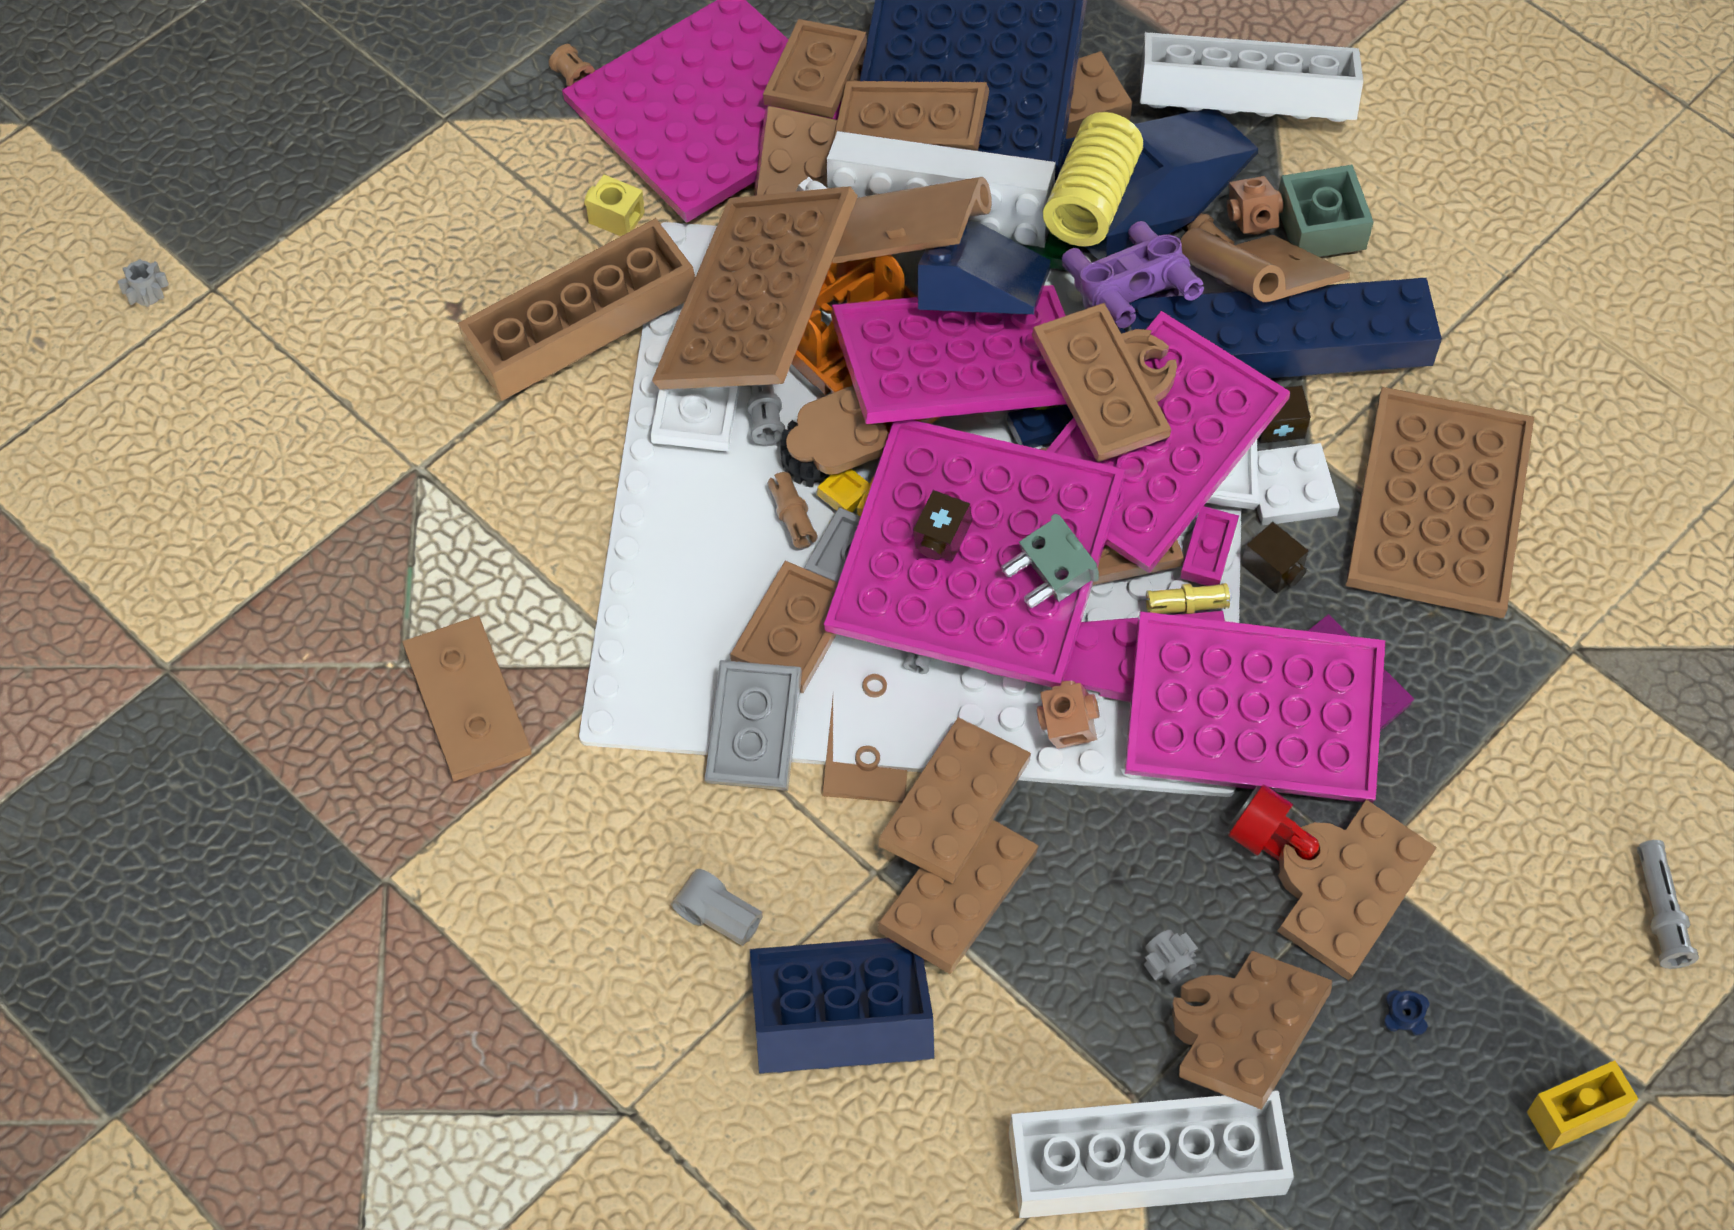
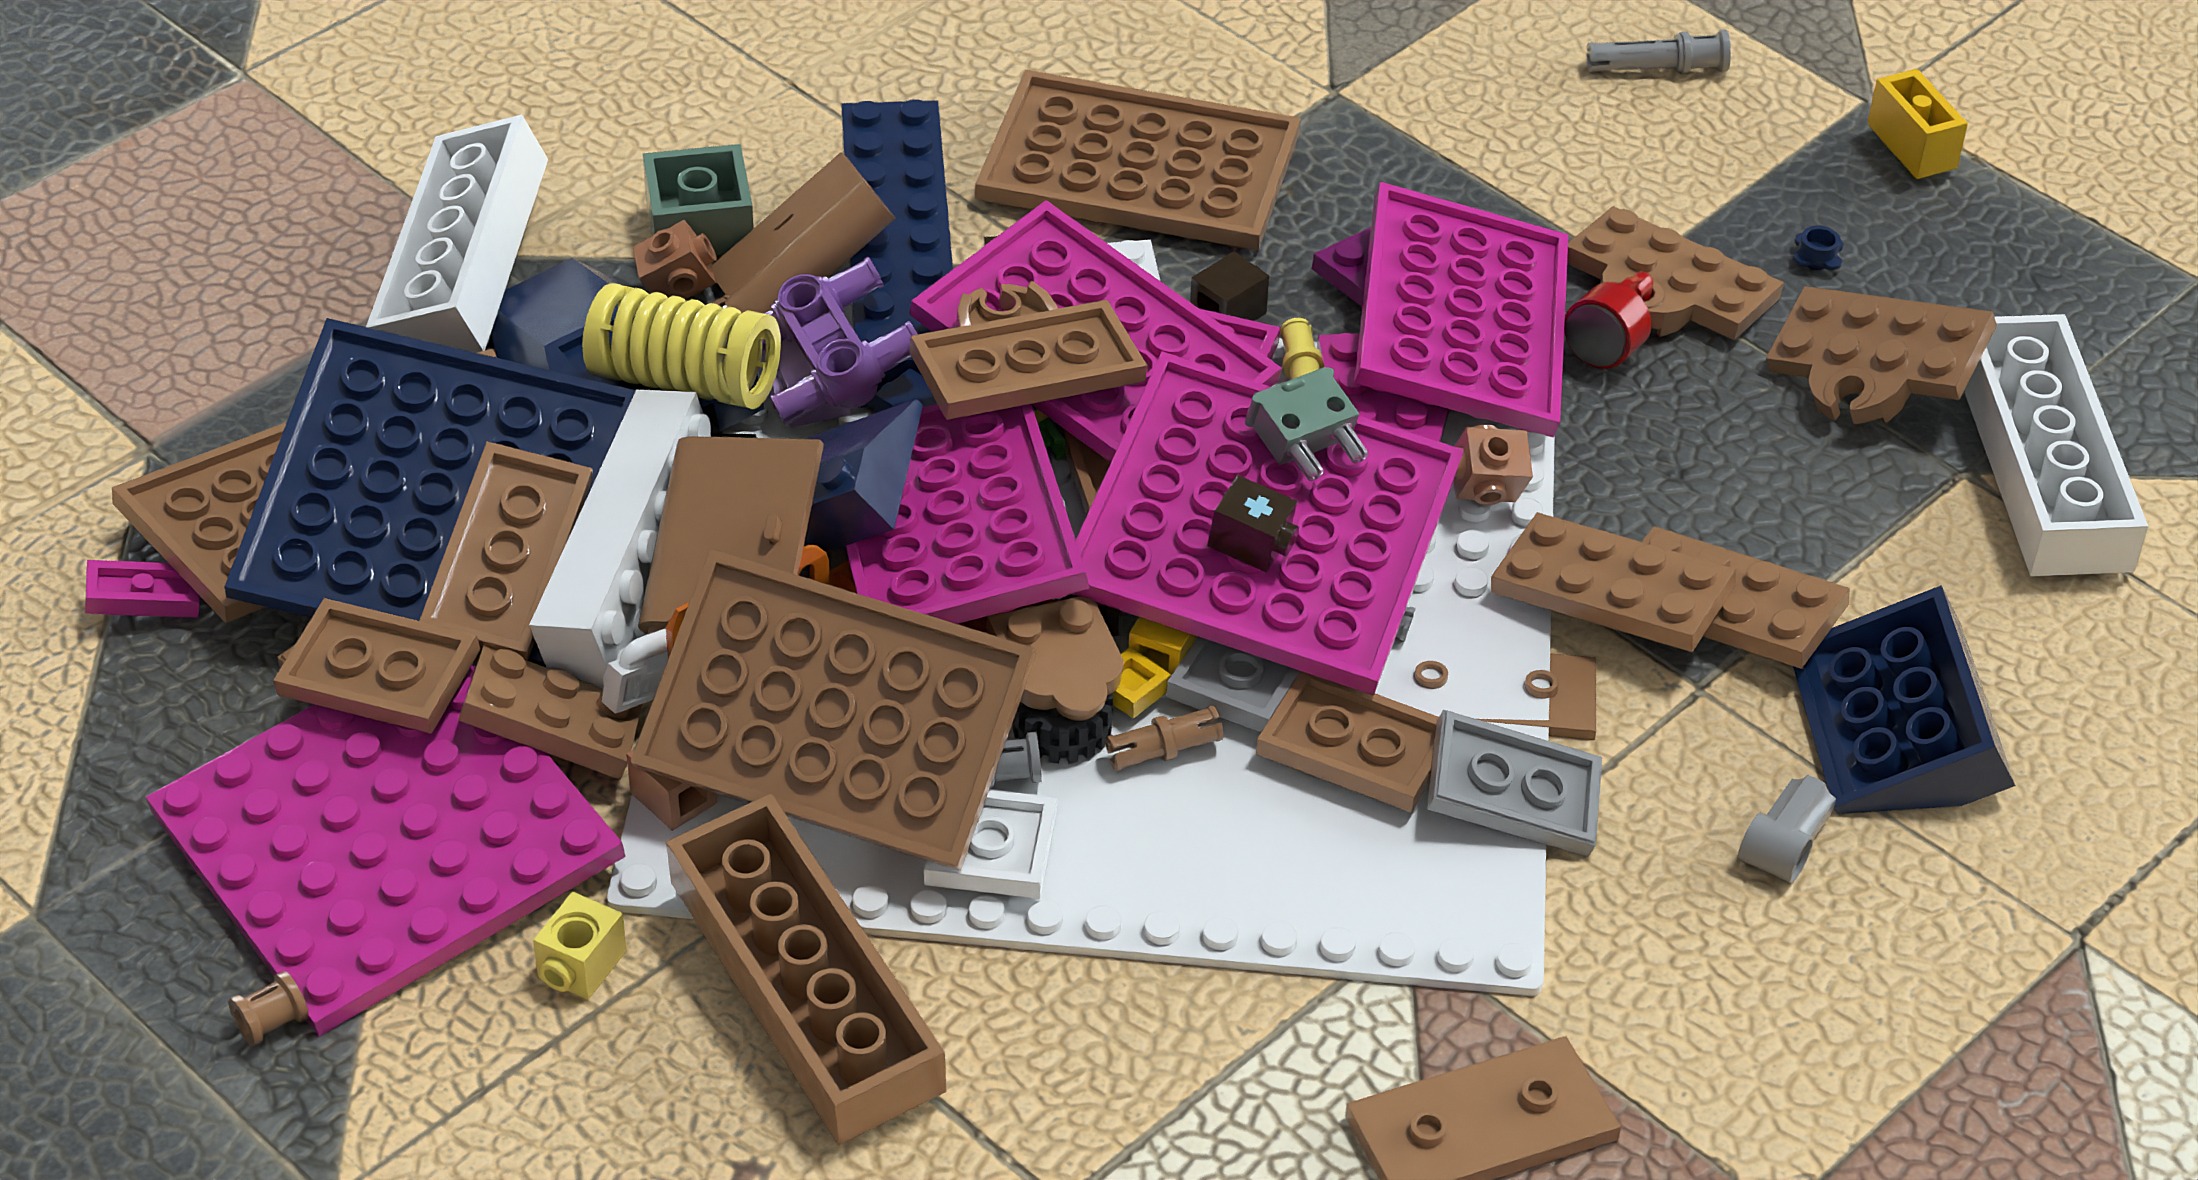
camera: 90 degrees left, 15 degrees down
(1170, 956) = (1791, 416): light grey gear -> none

